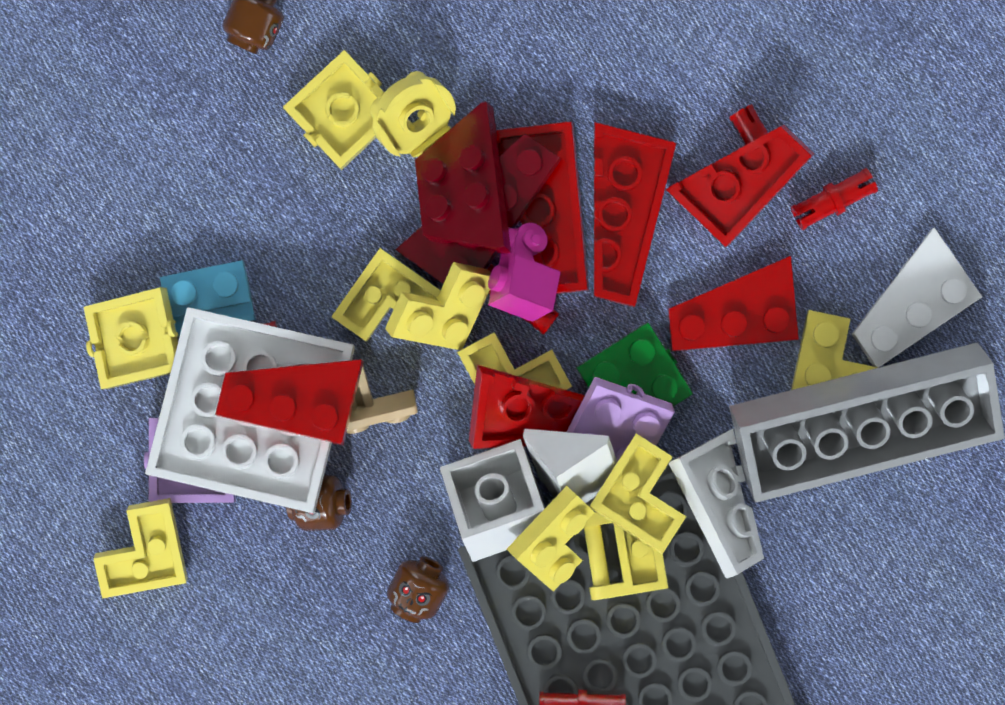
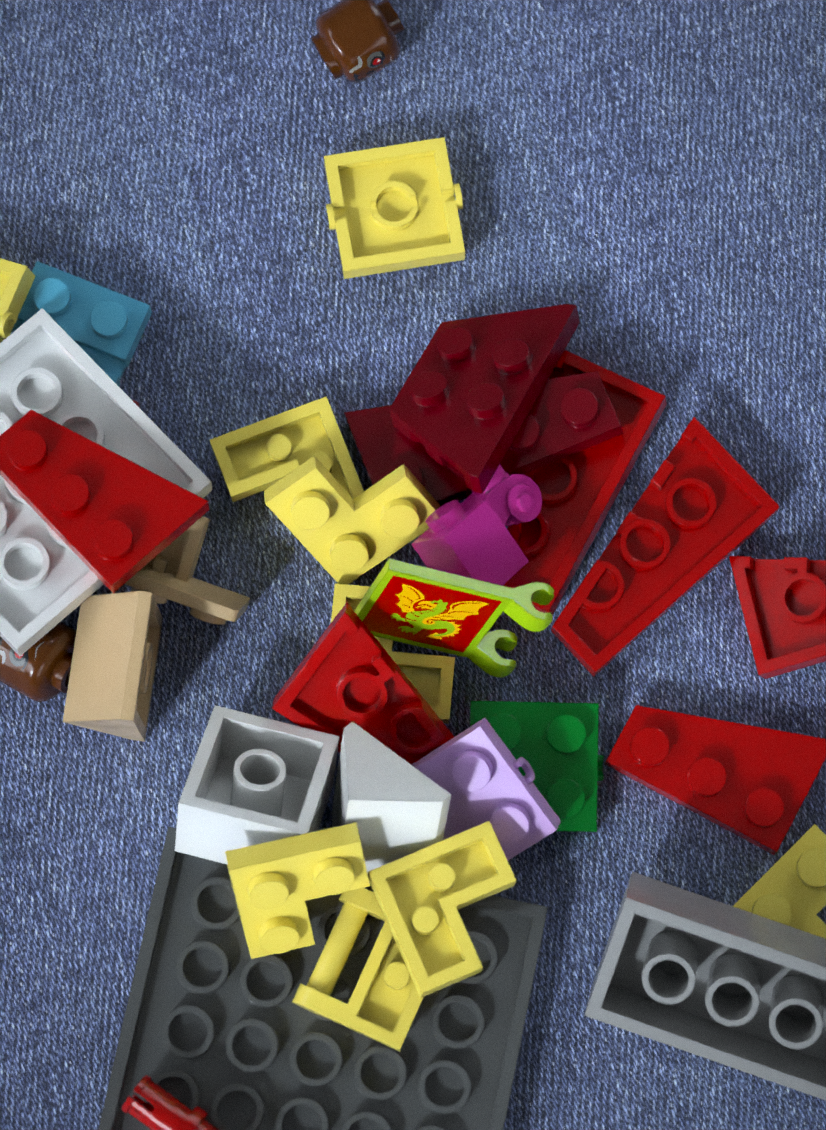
camera: 30 degrees right, 10 degrees down
(366, 481) = (114, 664): none -> tan slope
(397, 104) = (467, 232): light yellow plate -> none
(417, 589) = (83, 844): reddish brown head -> none
(538, 329) = (451, 612): none -> flag
(716, 499) = (538, 976): white wing -> none

